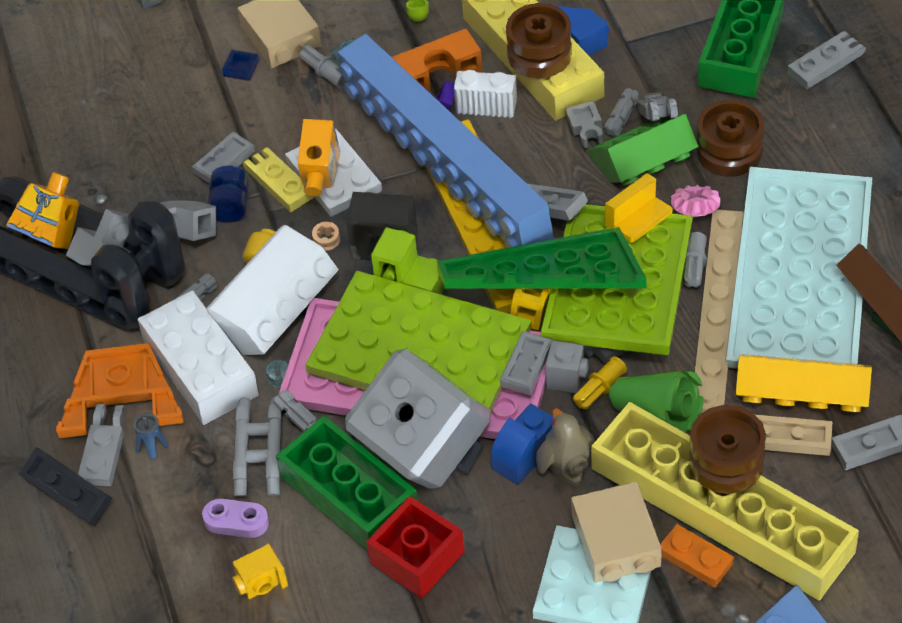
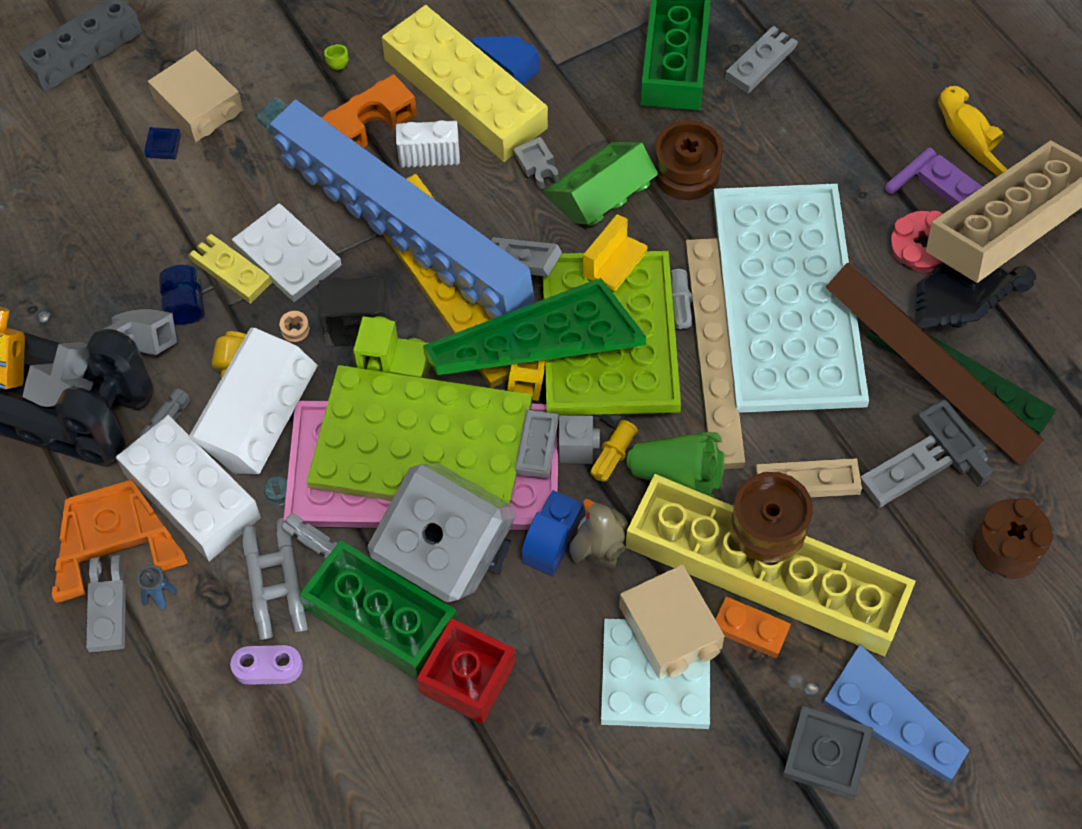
camera: 15 degrees left, 10 degrees up
(65, 486) = (75, 660): black plate -> none
(229, 152) = (168, 251): light grey plate -> none
(258, 572) = (306, 727): yellow brick -> none
(319, 164) = (271, 242): light orange torso -> none
(323, 65) = (251, 133): light grey axle -> none
(446, 94) = (388, 151): dark purple tile -> none
(539, 40) = (477, 82): reddish brown wheel -> none
(621, 112) = (570, 144): light grey axle -> none
(656, 106) = (608, 136): light grey hinge -> none
(695, 200) = (676, 237): bright pink gear -> none
(803, 380) = (820, 419): yellow brick -> none

